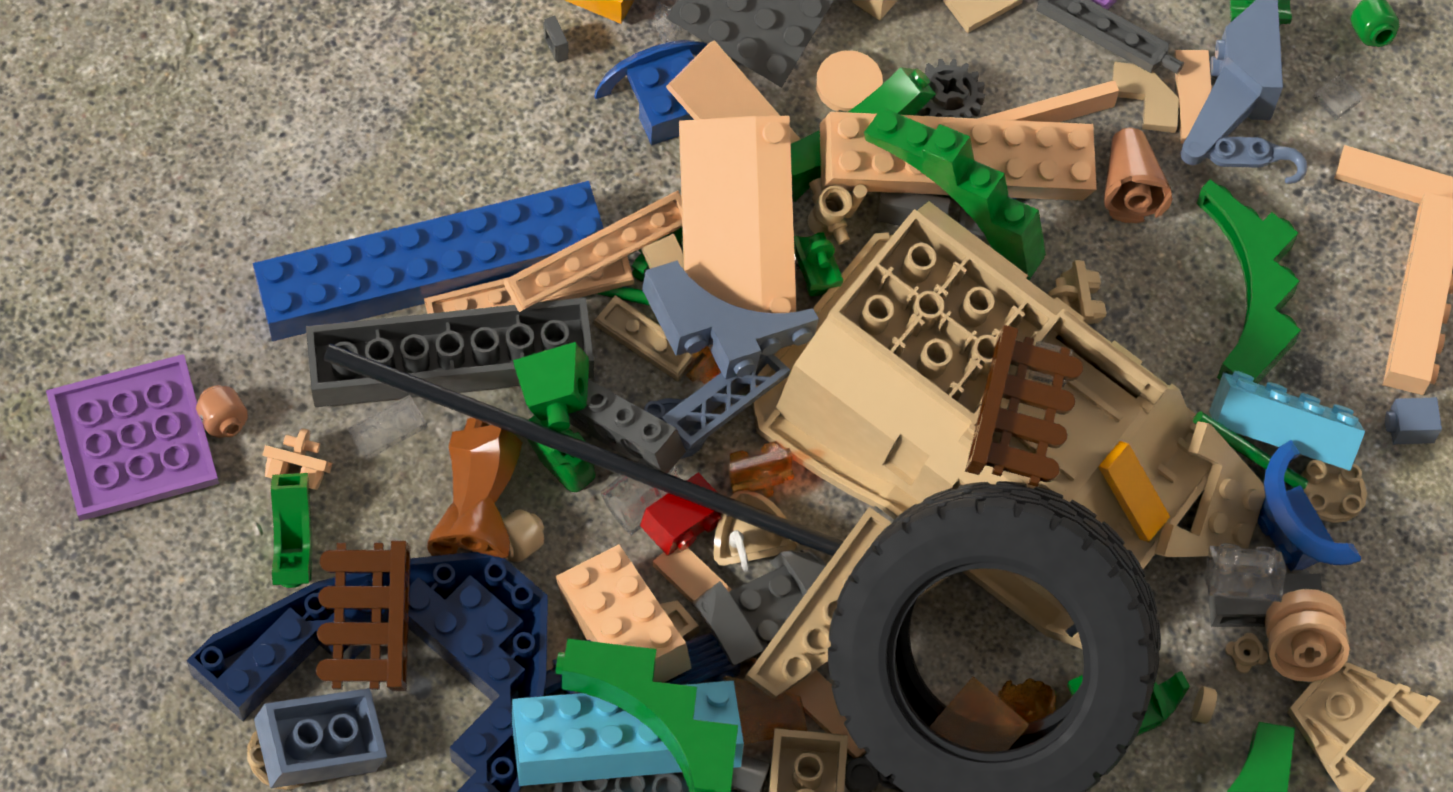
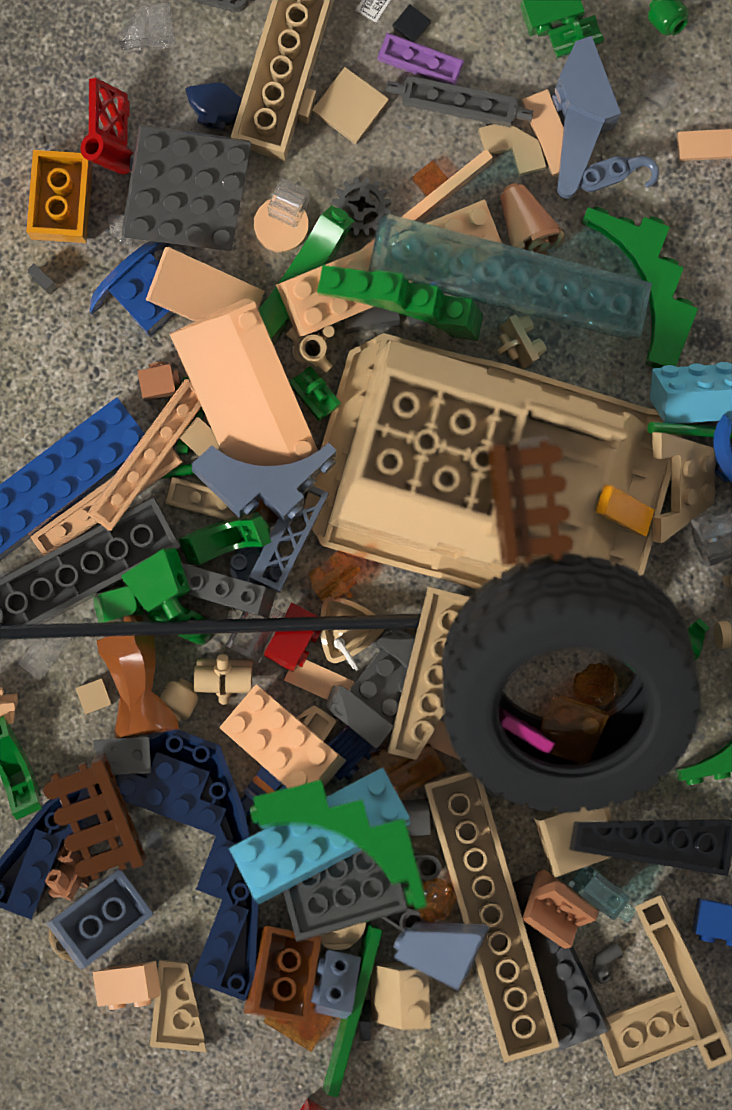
camera: 20 degrees left, 20 degrees up
(302, 681) = (65, 881): none -> nougat hips
(420, 498) = (94, 696): none -> tan tile
(435, 560) = (126, 754): none -> dark grey piece
(499, 391) = (116, 605): none -> green piece
(582, 528) = (223, 677): none -> tan pin
(640, 187) = (158, 381): none -> nougat brick
(652, 376) = (225, 537): none -> green arch
(867, 55) = (288, 202): none -> clear piece
(919, 691) = (524, 730): none -> dark pink tile
(1036, 90) = (429, 178): none -> clear orange tile
(1101, 213) = (511, 277): none -> clear light blue brick

